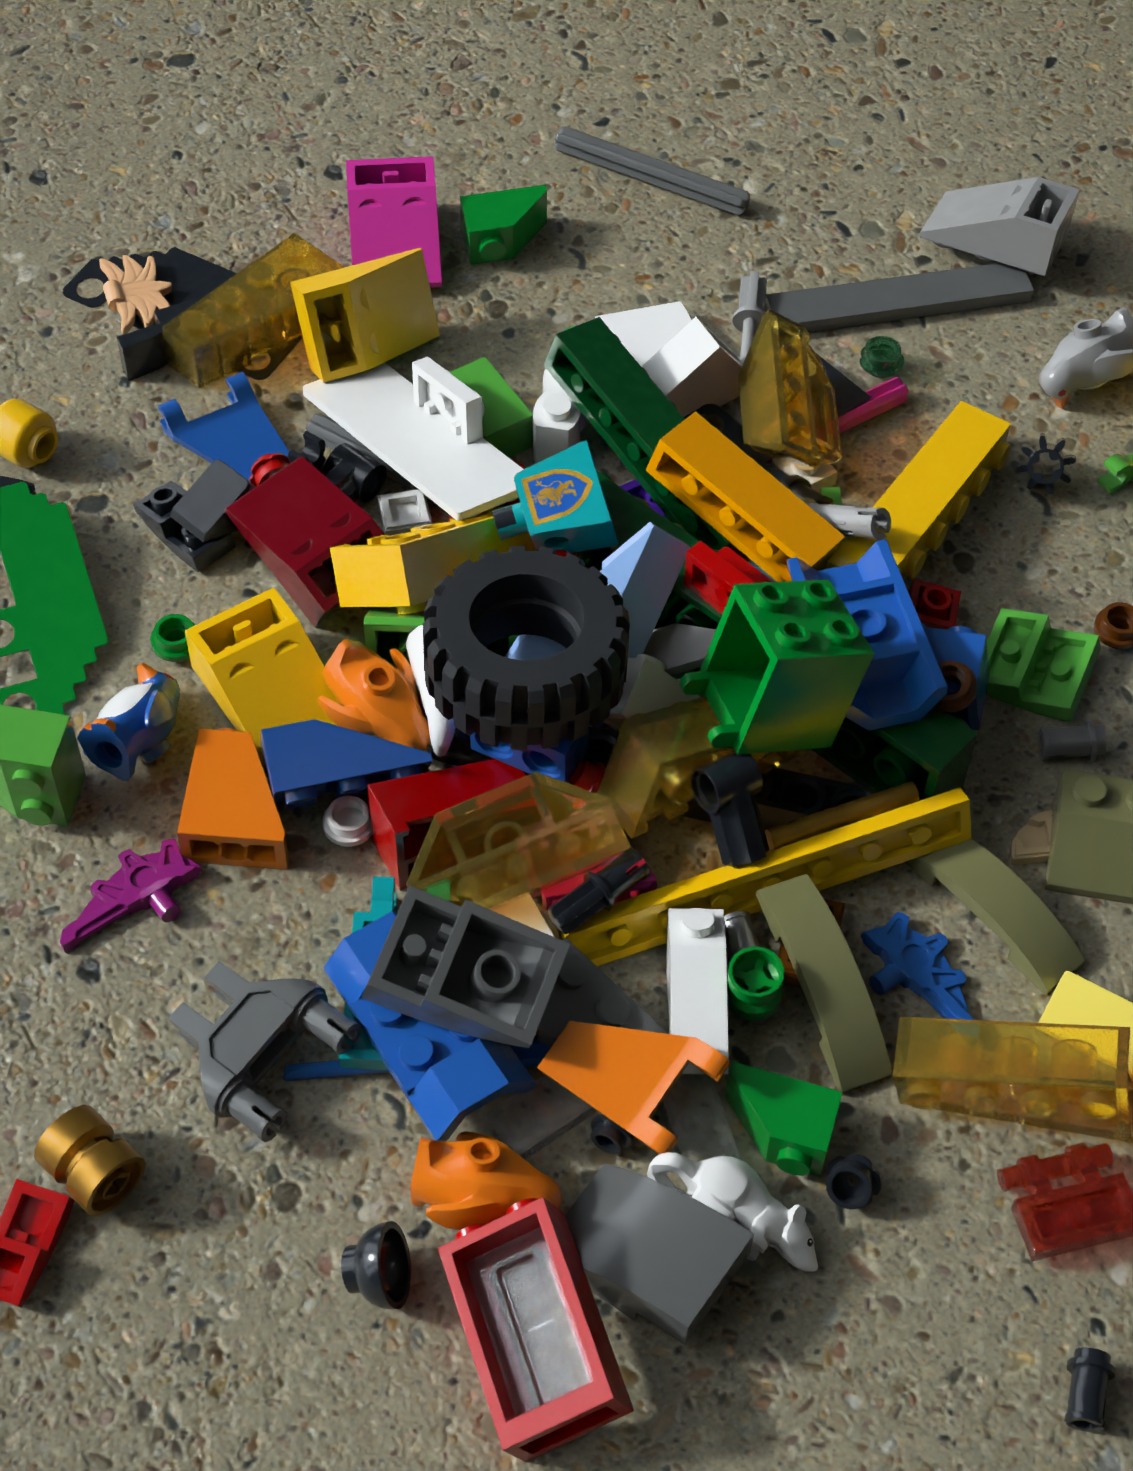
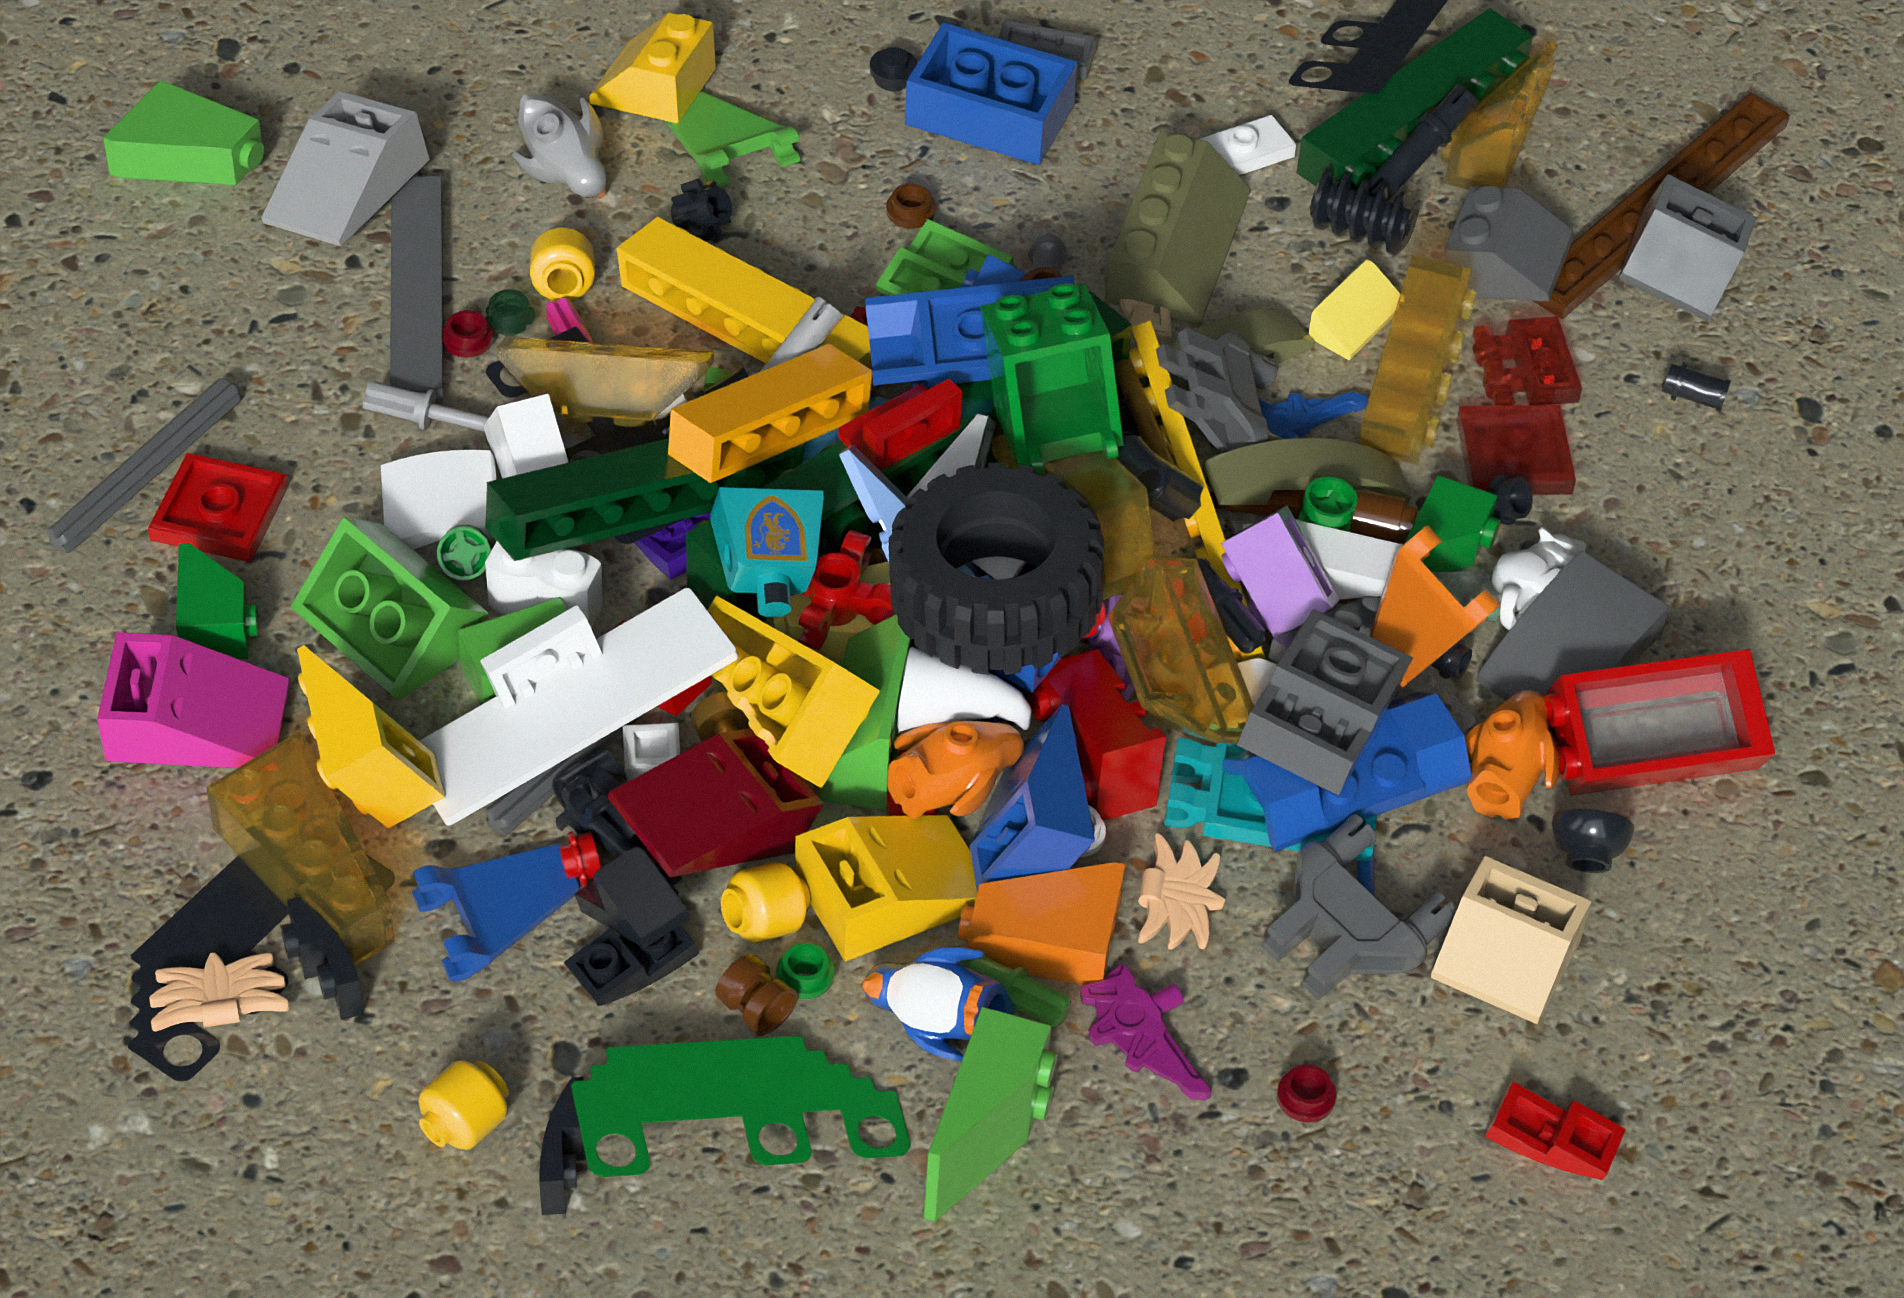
camera: 85 degrees left, 5 degrees down
(58, 1023) = (1306, 1094): none -> dark red plate
(83, 1156) = (1474, 1059): pearl gold wheel -> none
(141, 603) = (756, 994): none -> reddish brown wheel
(160, 784) = (1026, 993): none -> bright green axle
(230, 585) = (765, 902): none -> yellow head
(235, 1187) = (1511, 939): none -> tan slope
(288, 910) = (1178, 894): none -> light nougat piece
(524, 321) = (385, 606): none -> bright green slope
(618, 220) = (218, 507): none -> red tile
(643, 931) = (1278, 572): none -> brick
(789, 1044) = (1382, 516): none -> reddish brown brick
(847, 333) = (467, 334): none -> dark red plate
(902, 878) = (1220, 387): none -> dark grey connector
(940, 1196) = (1517, 442): none -> clear red tile
(944, 378) = (562, 264): none -> yellow head
(1013, 125) = (183, 140): none -> bright green slope

